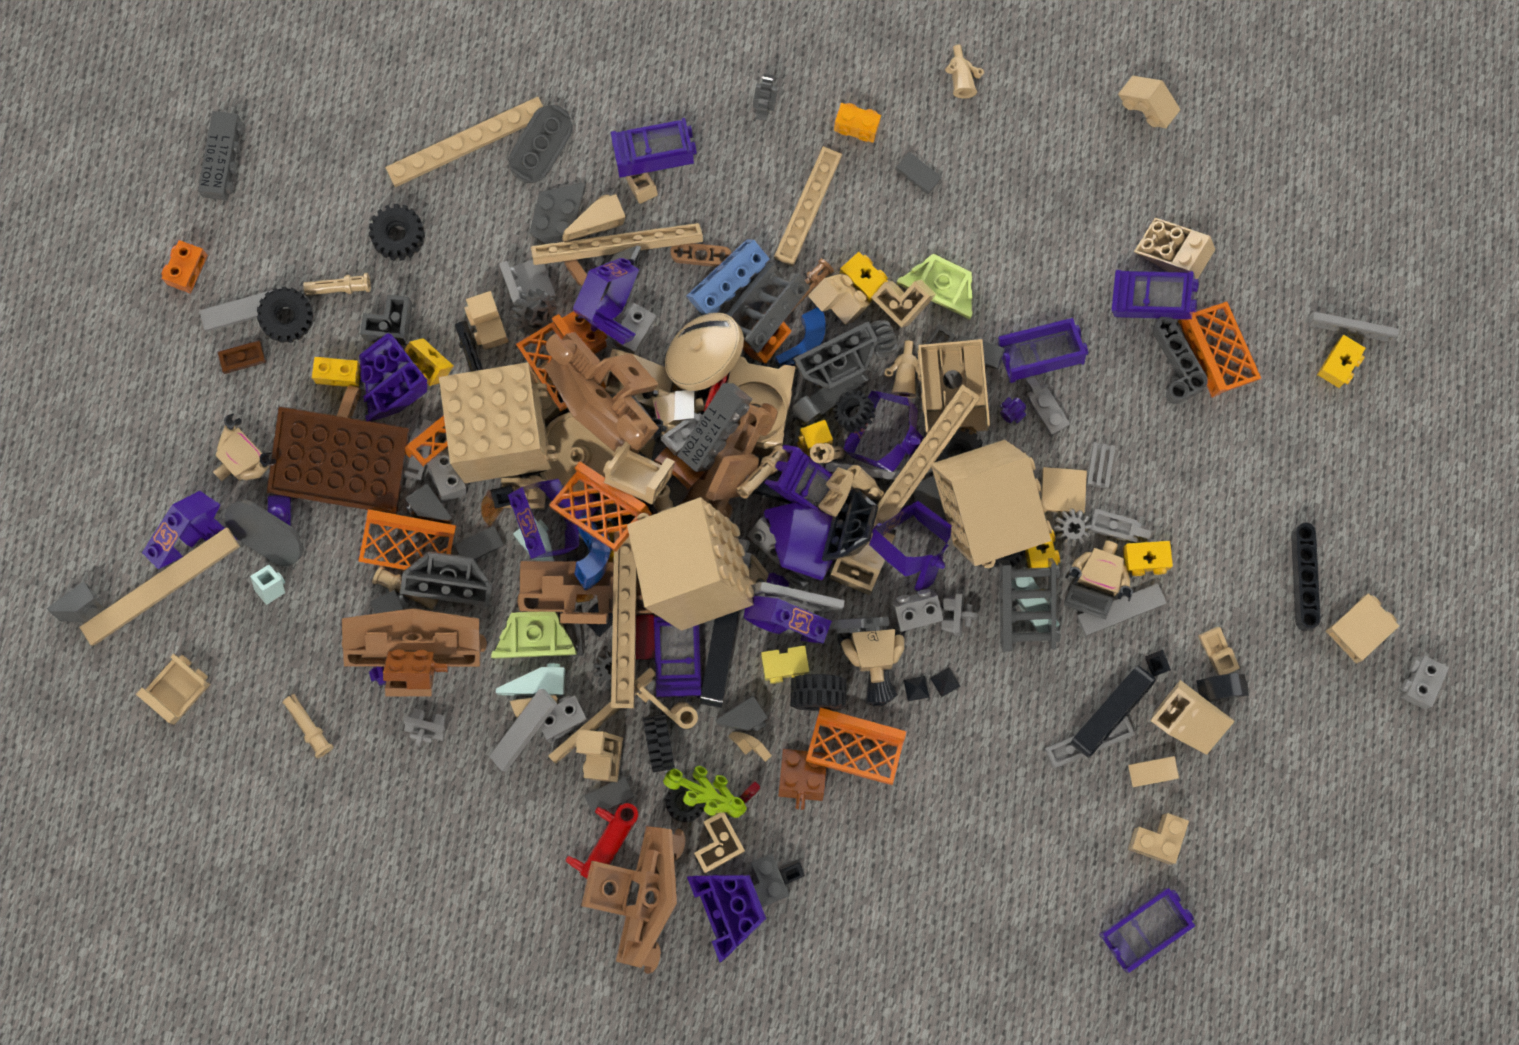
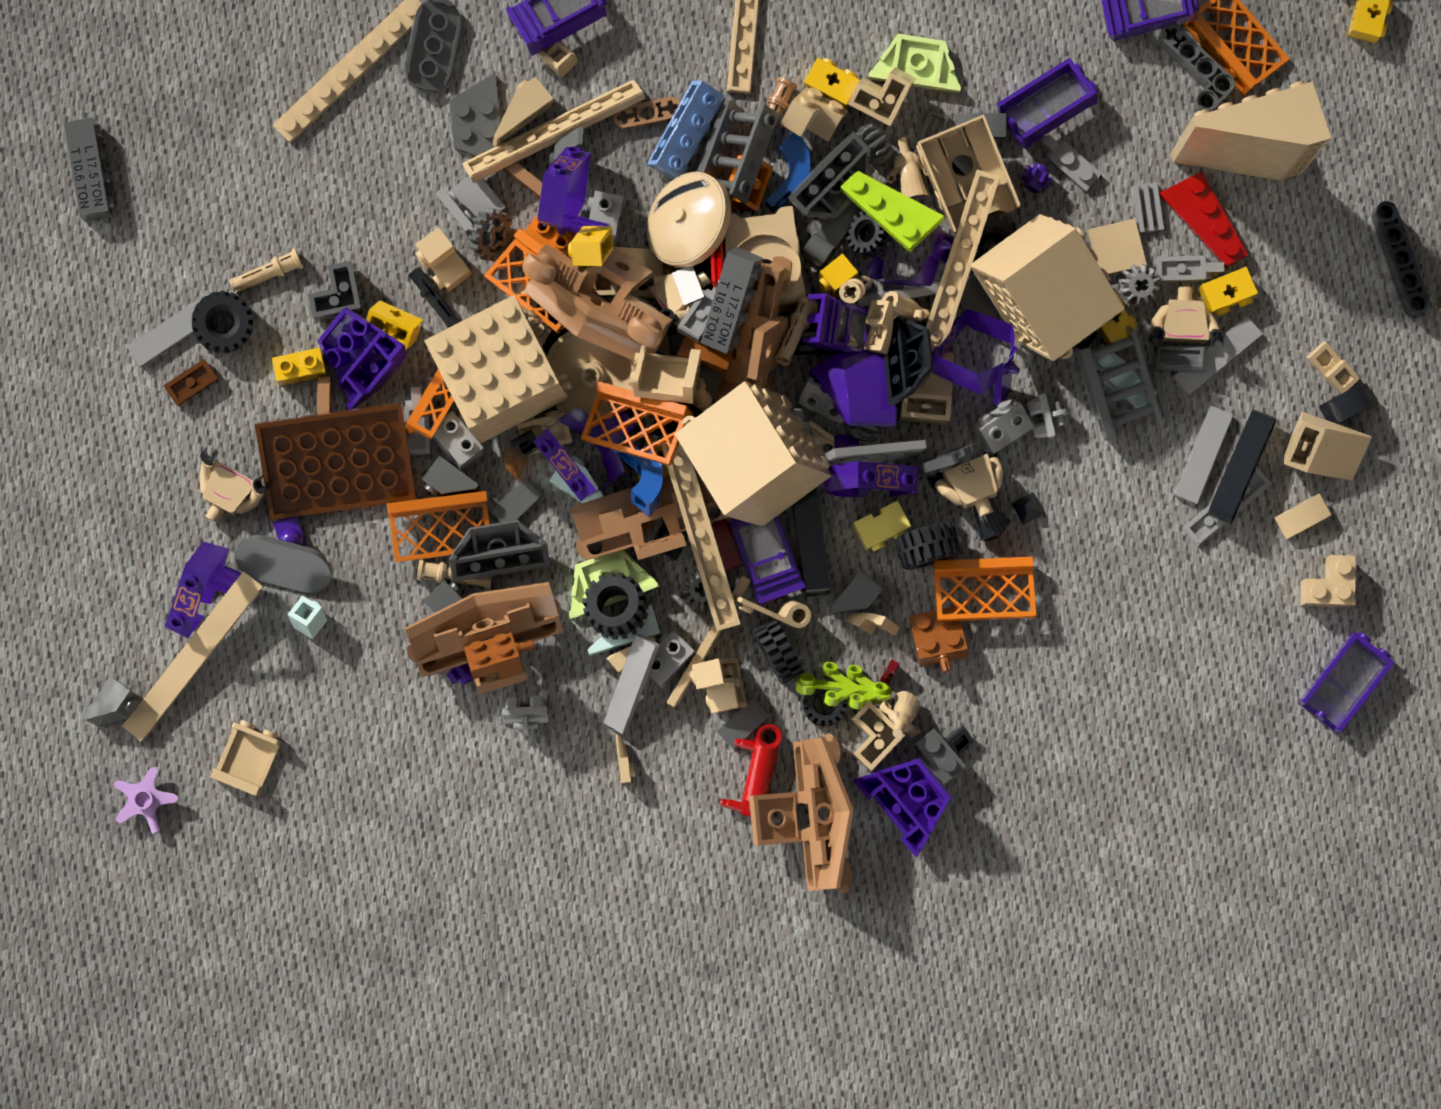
camera: 15 degrees left, 5 degrees up
(74, 696) = (144, 799): none -> lavender animal
(184, 266) = (95, 304): orange brick -> none
(313, 734) = (410, 759): tan pin -> none
(396, 217) = (302, 177): black tyre -> none
(495, 803) = (626, 769): none -> tan plate
(526, 642) = (604, 590): none -> black tyre
(611, 345) = (591, 246): none -> yellow brick
(751, 830) = (903, 713): none -> tan piece
(882, 401) = (896, 213): none -> lime wing
(945, 682) = (1056, 492): black slope -> none
(1082, 691) = (1203, 455): none -> light grey tile
(1145, 480) = (1202, 212): none -> red wing
(1157, 663) = (1272, 400): black slope -> none
(1212, 429) = (1260, 136): none -> tan slope

